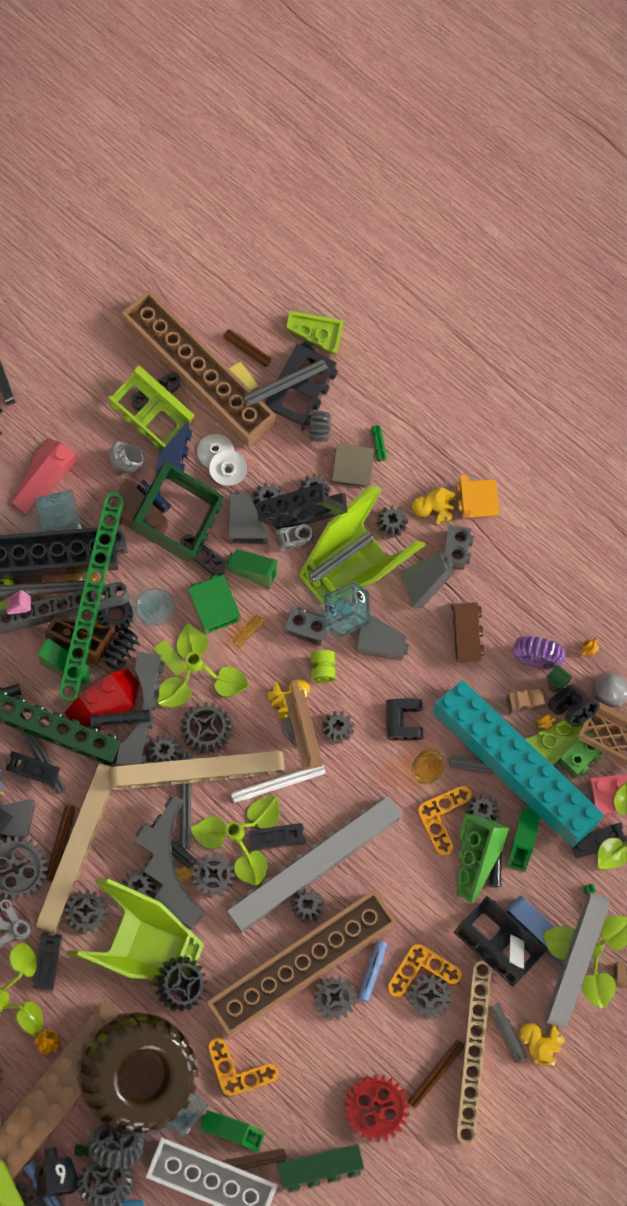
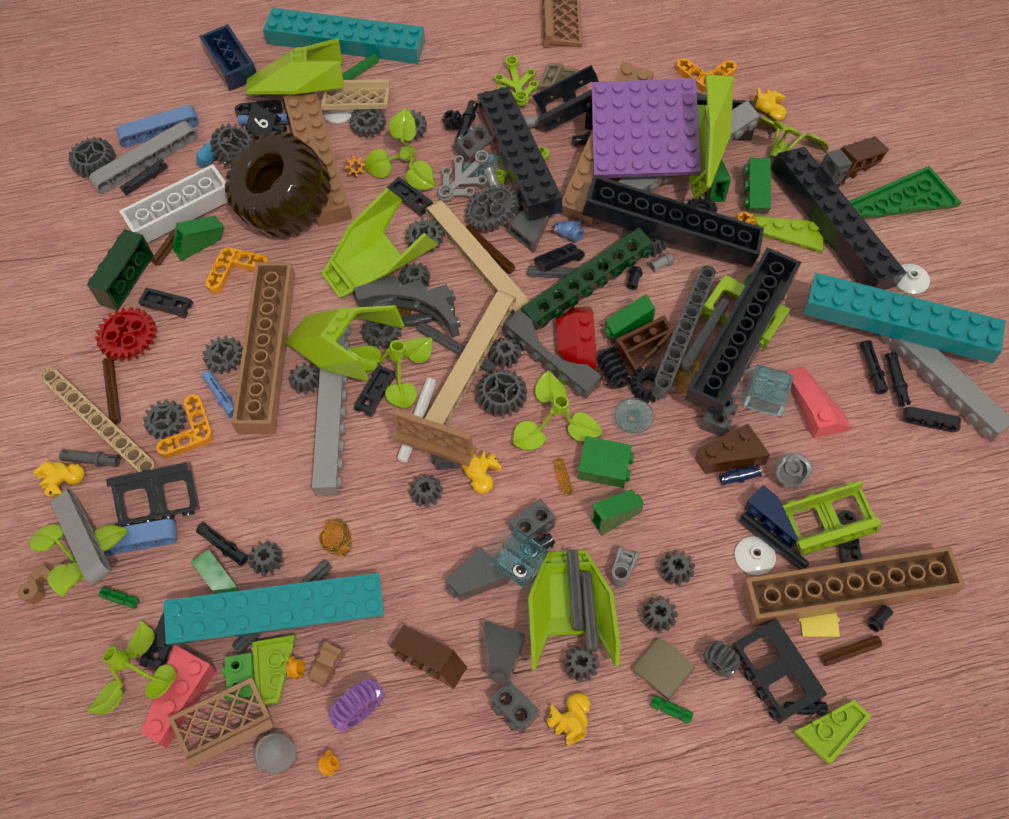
camera: 130 degrees right, 10 degrees down
(19, 603) = (701, 310): bright pink slope -> none
(90, 586) = (677, 358): green beam -> none
(120, 718) = (548, 335): black pin -> none
(170, 658) = (585, 406): lime sticker -> none
(187, 998) = (317, 255): black gear -> none
(190, 1115) = (229, 217): clear light blue slope -> none
(191, 485) = (735, 453): dark green window -> none
(195, 442) = (773, 541): none -> black axle
(210, 340) = (879, 619): none -> black pin
(216, 559) = (673, 483): black beam -> none
(225, 460) = (730, 543): white dish -> none
(244, 522) = (667, 533): dark grey slope -> none
(255, 909) = (319, 332): none -> lime windscreen
(284, 382) = (787, 650): dark grey axle -> none
(294, 510) = (640, 575): black window -> none
(315, 607) = (546, 541): none -> black pin
(320, 1102) = (165, 302): none -> black plate
(323, 666) = (486, 511): lime wheel -> none
(351, 535) = (589, 612): none -> flat silver axle
(395, 721) = (396, 540): black connector -> none
(434, 817) = (293, 518): light orange beam -> none
(477, 498) = (551, 764): light orange bracket -> none
(481, 846) = (233, 530): bright green wedge -> none
(516, 951) = (132, 498): white sticker -> none
(558, 679) = (317, 703): dark green piece -> none
(577, 704) = (290, 712): black connector -> none

